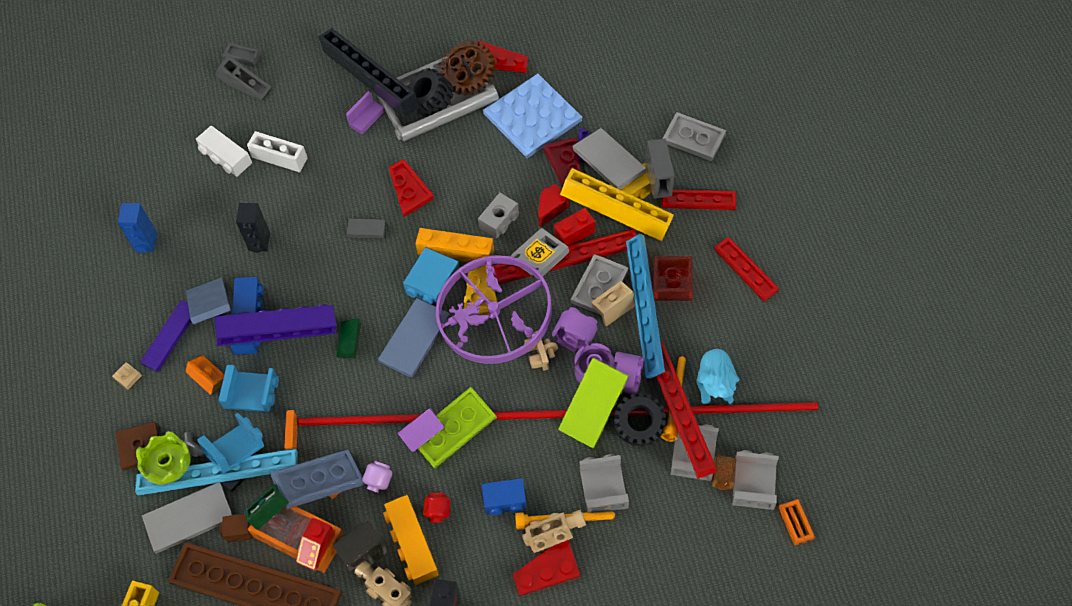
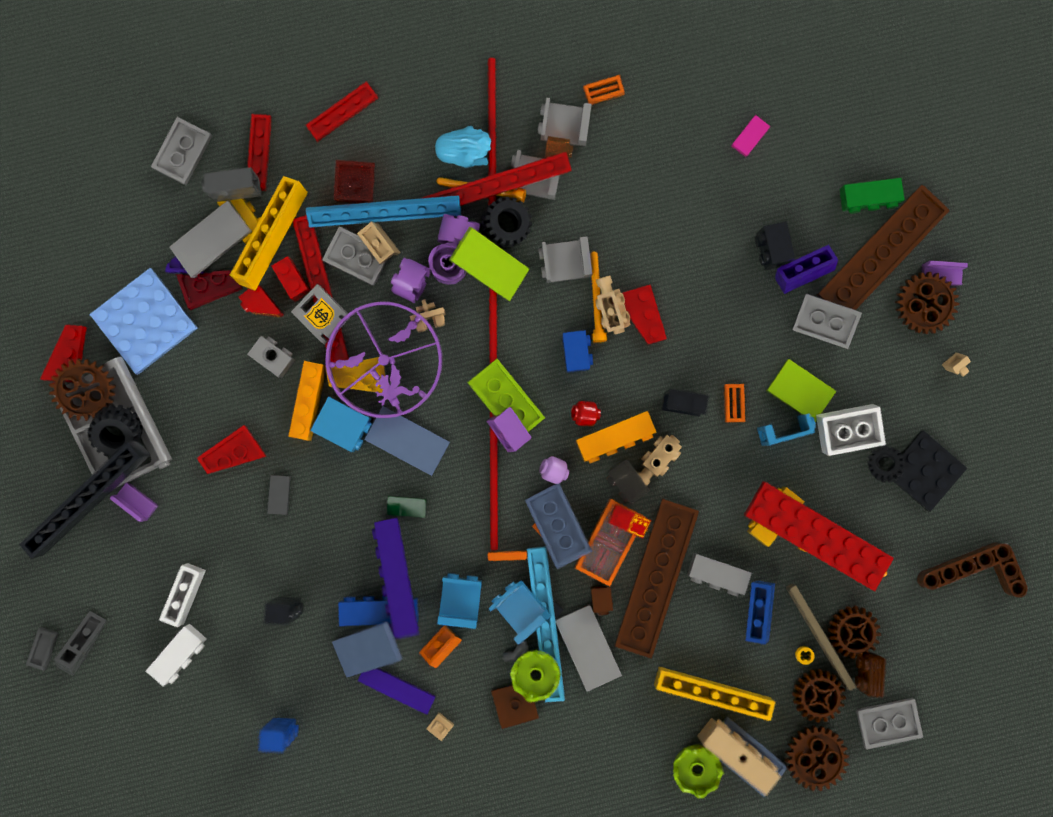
camera: 90 degrees left, 25 degrees up
(266, 507) = (591, 569): dark green slope -> none

